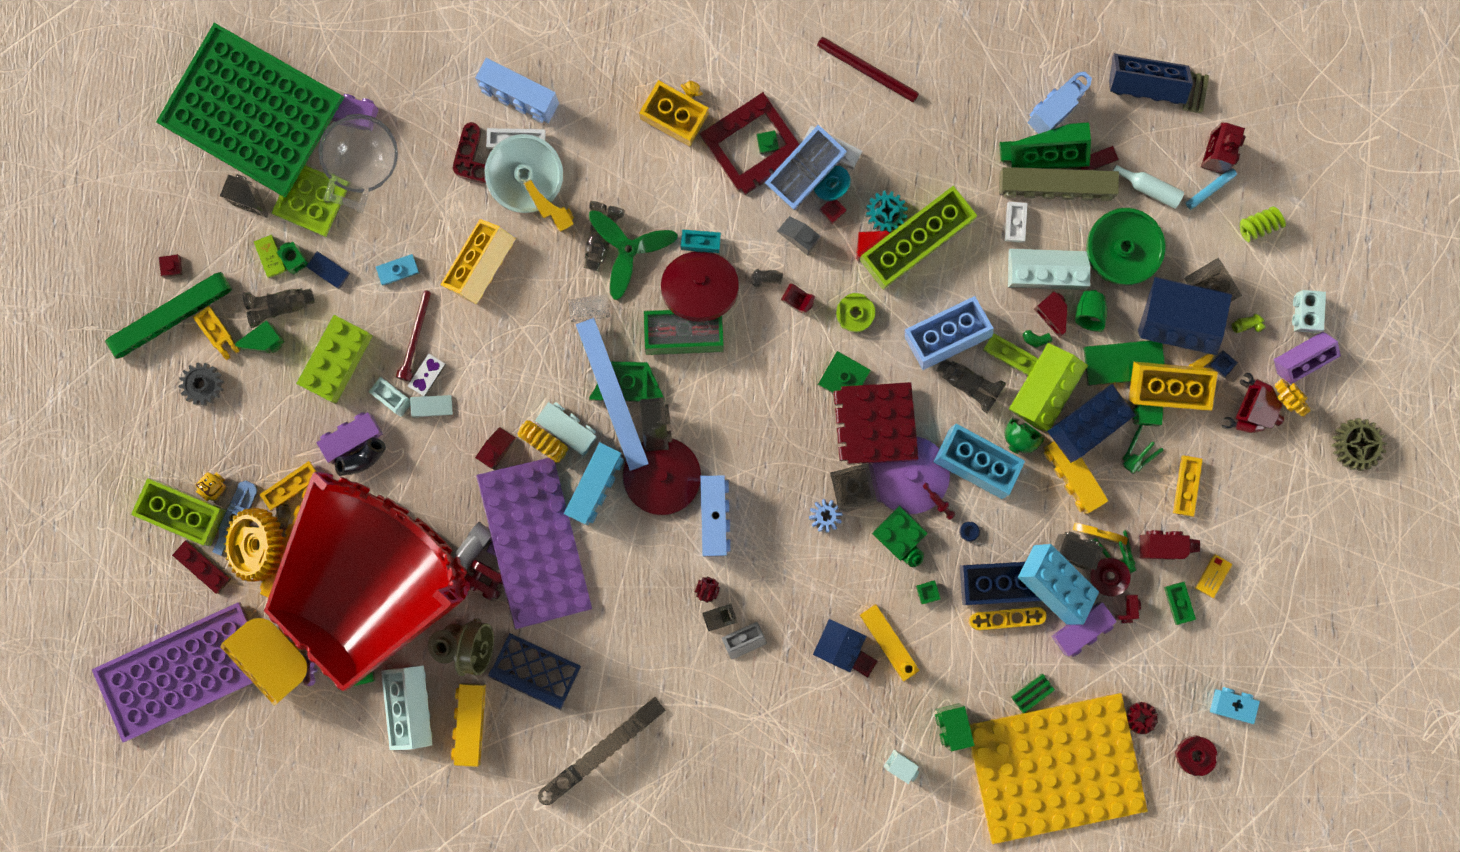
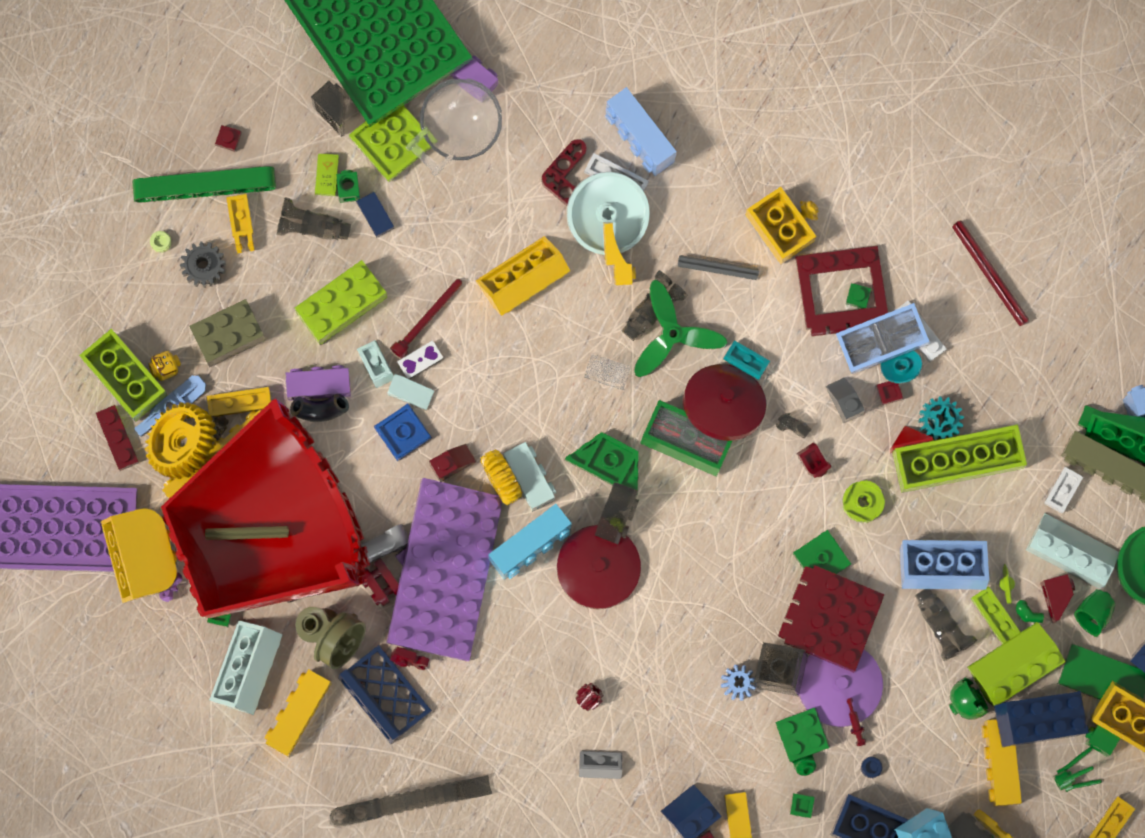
camera: 25 degrees right, 5 degrees down
(156, 382) = (160, 241): none -> yellowish green tile
(250, 432) = (227, 333): none -> olive brick
(262, 339) = (280, 250): green slope -> none
(350, 594) = (247, 533): none -> olive axle
(397, 269) = (441, 246): medium azure plate -> none
(441, 443) = (402, 432): none -> blue tile
(537, 633) = (407, 658): none -> dark red plate
(612, 394) = (589, 465): light blue tile -> none
(639, 174) = (718, 267): none -> dark grey axle
(713, 501) = (636, 616): light blue brick -> none
(719, 617) = (588, 729): clear smoke slope -> none
(979, 461) = (913, 702): medium azure brick -> none
(1007, 323) = (1007, 584): none -> lime piece

